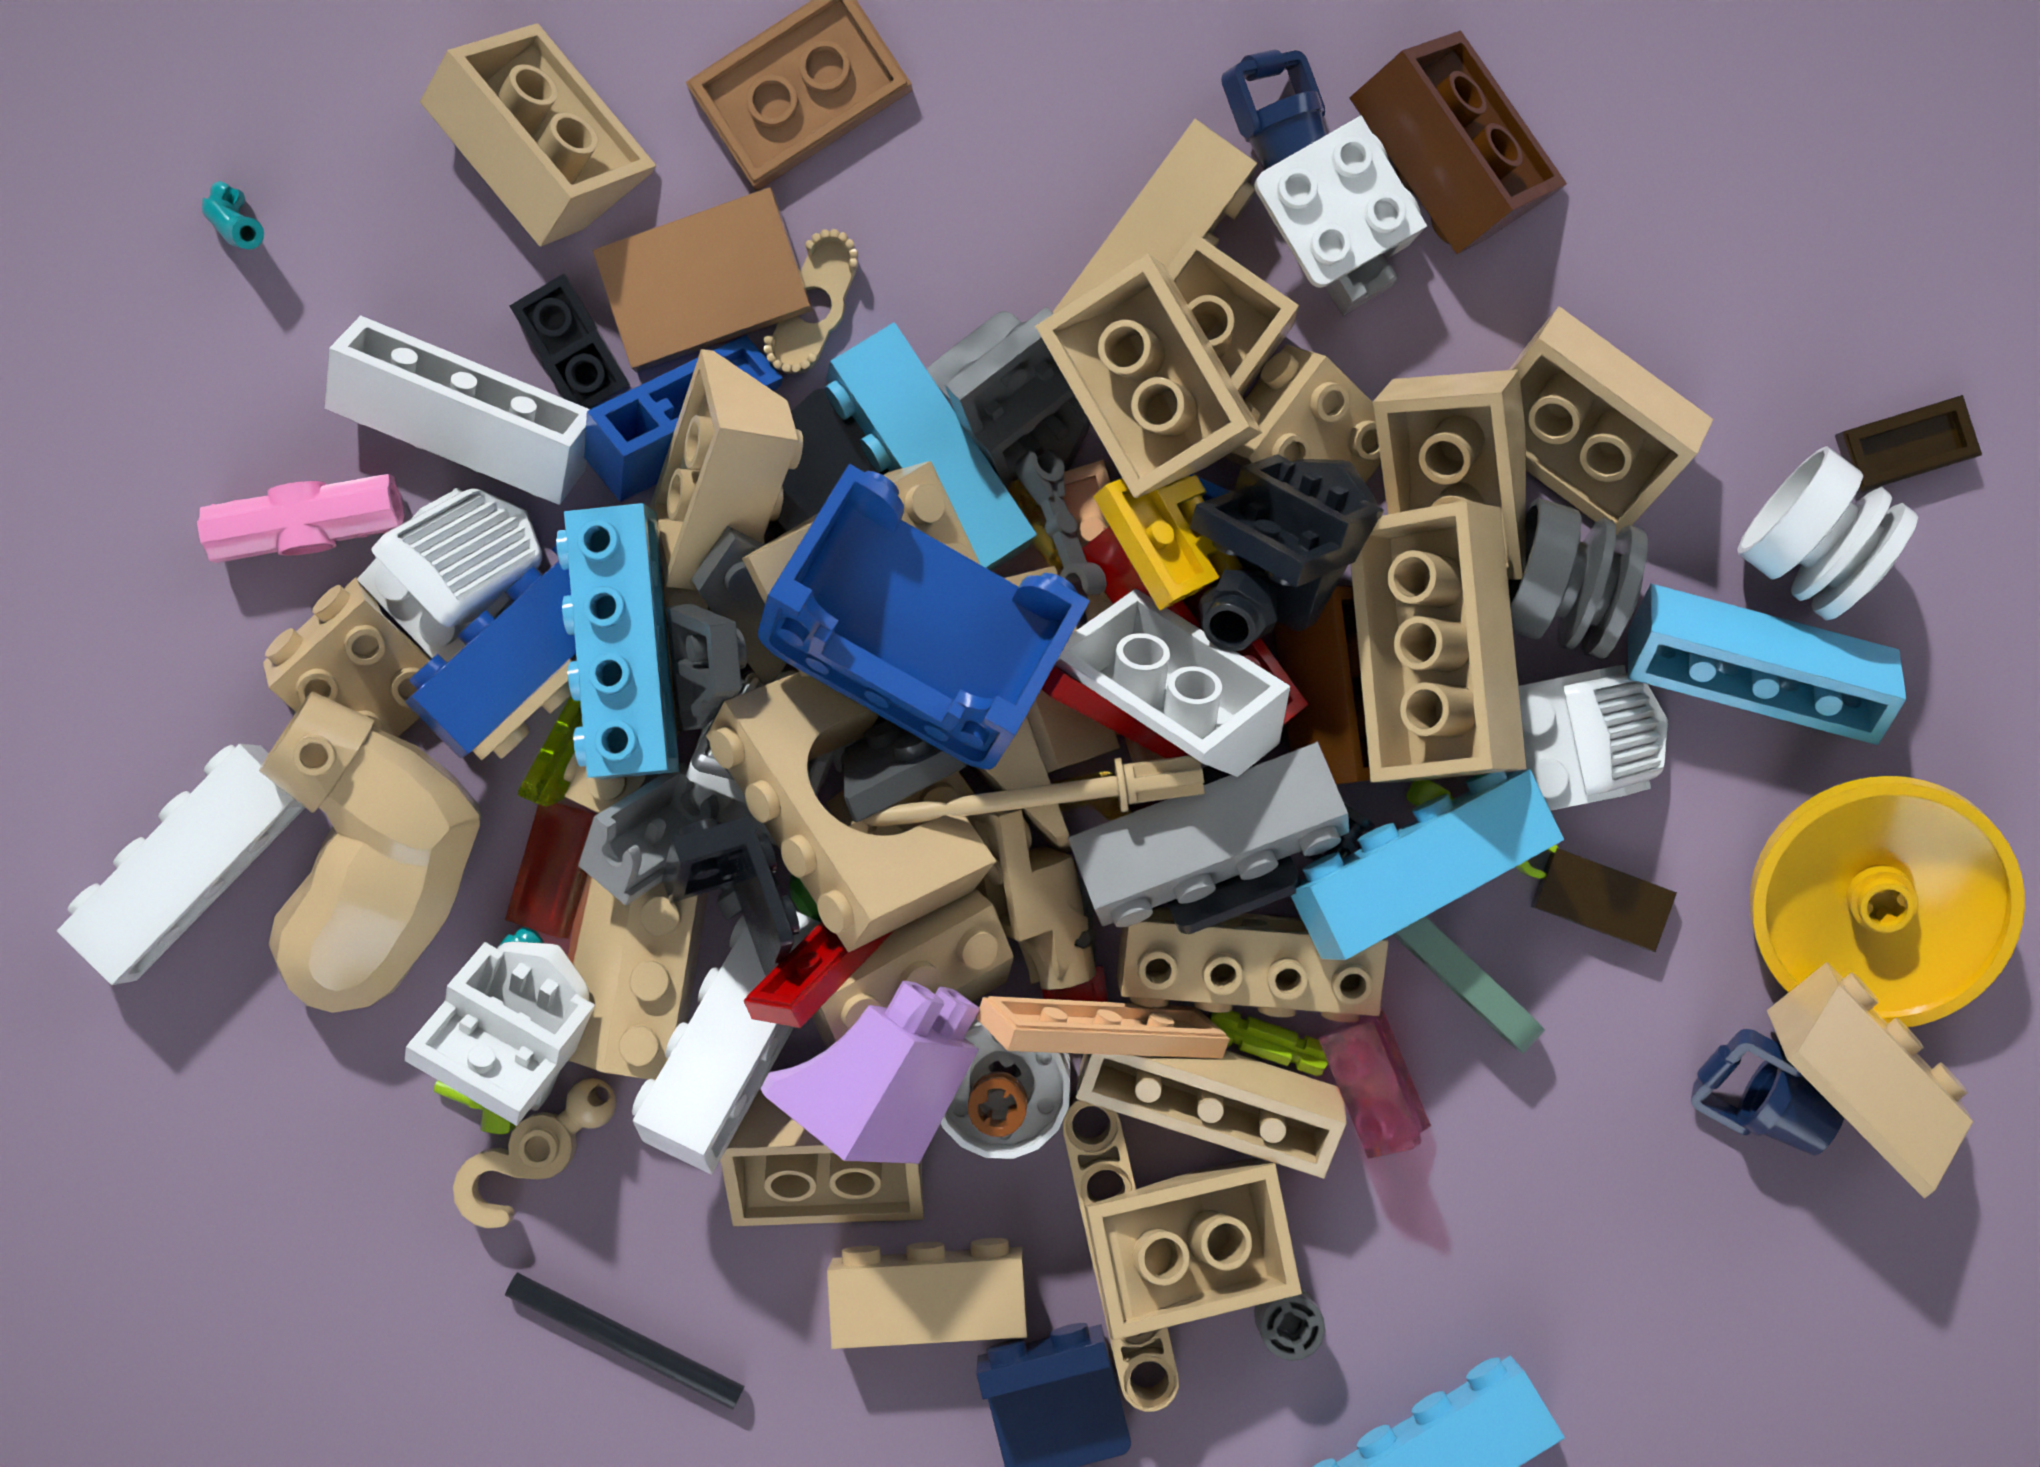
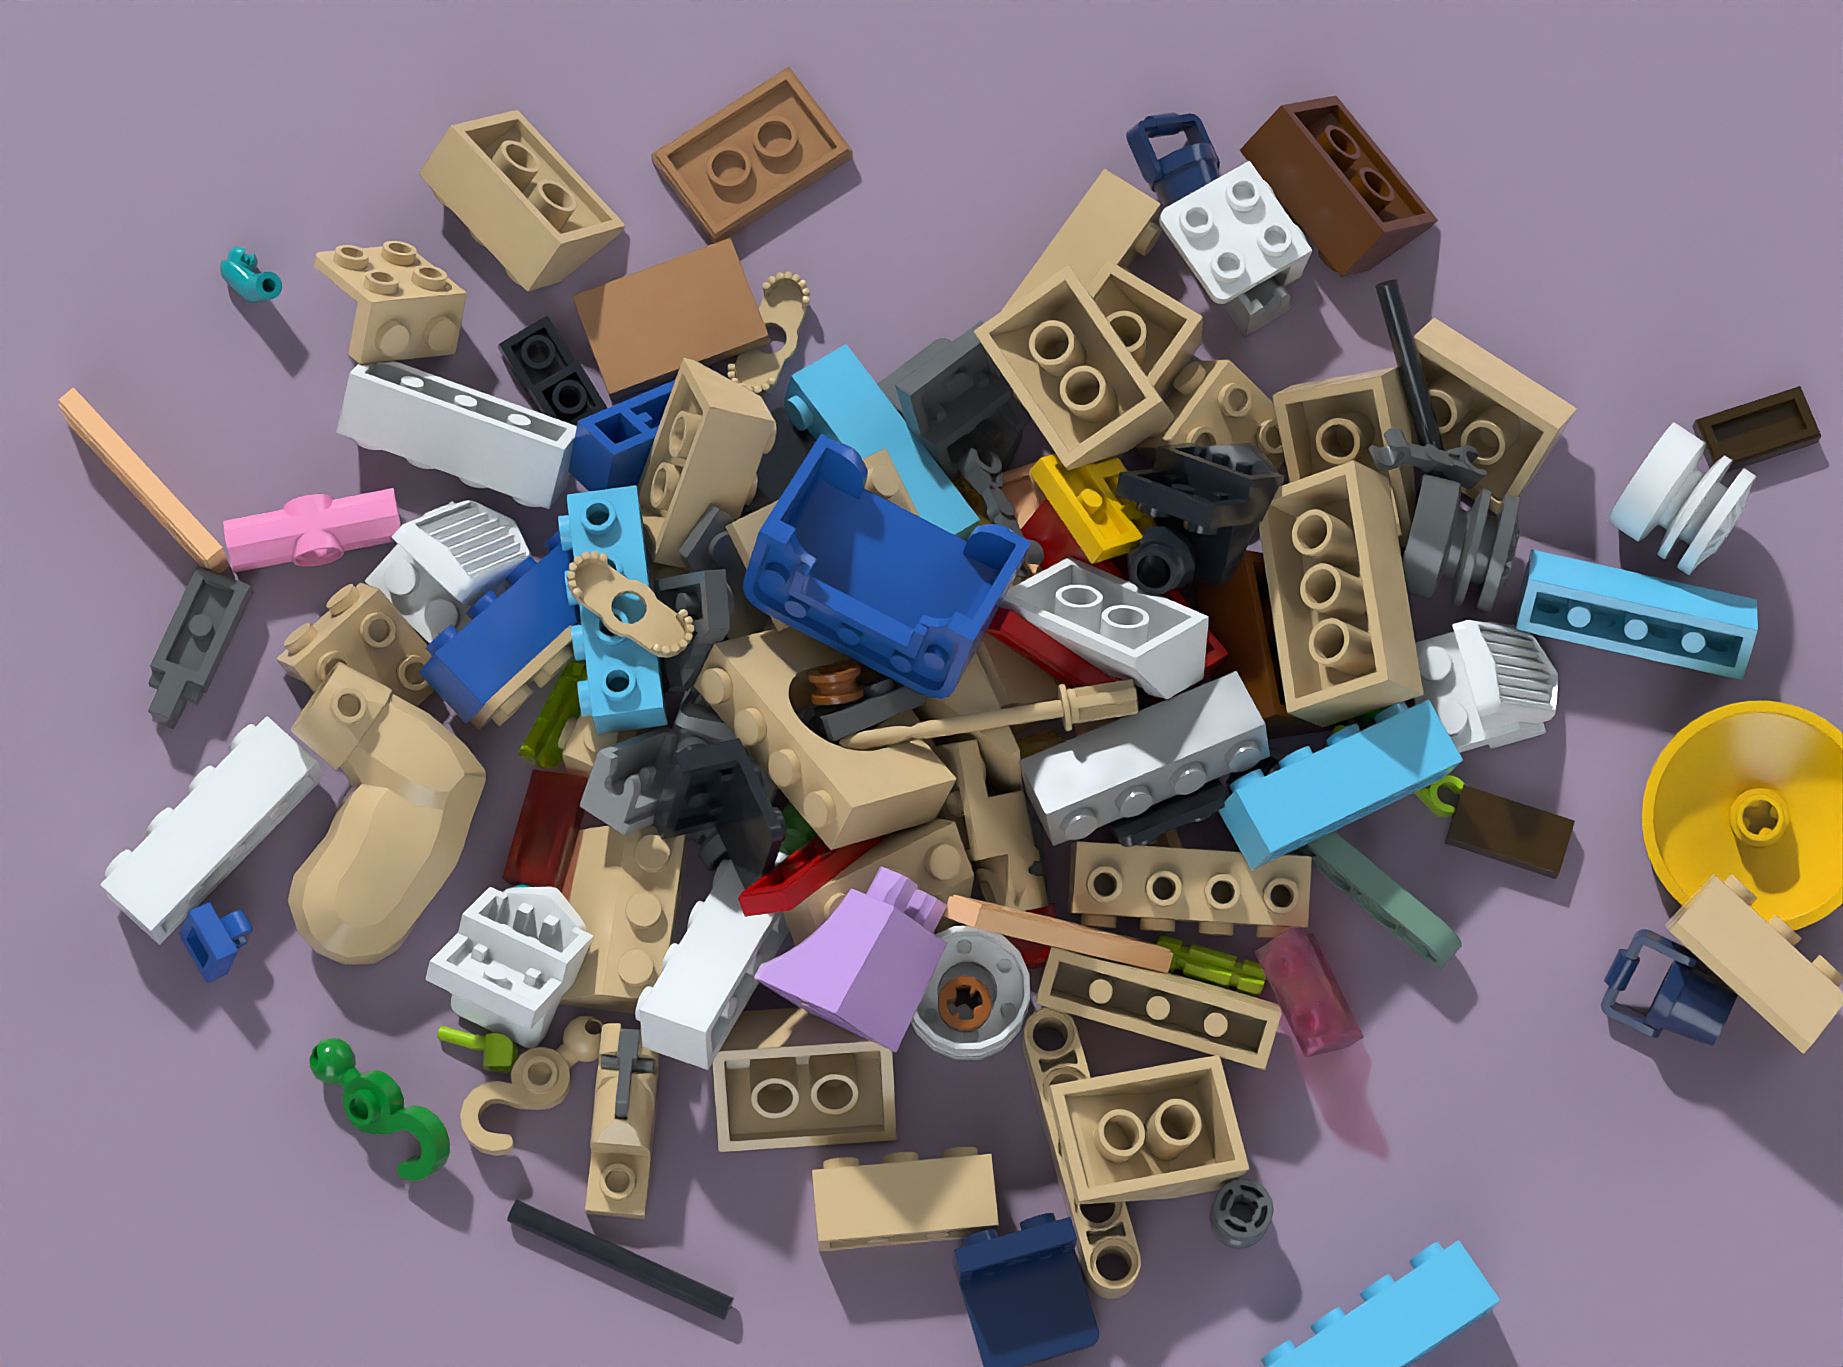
camera: 10 degrees left, 15 degrees down
(111, 456) = (142, 482): none -> light nougat tile
(172, 644) = (195, 642): none -> dark grey hinge
(191, 982) = (214, 940): none -> blue tile
(364, 1171) = (377, 1107): none -> green piece
(390, 255) = (401, 301): none -> tan bracket
(591, 630) = (598, 584): none -> tan piece
(626, 1207) = (622, 1125): none -> tan plate
(863, 746) = (835, 683): none -> dark orange bush
(1534, 388) = (1409, 366): none -> black bar
(1569, 486) = (1453, 463): none -> dark grey piece

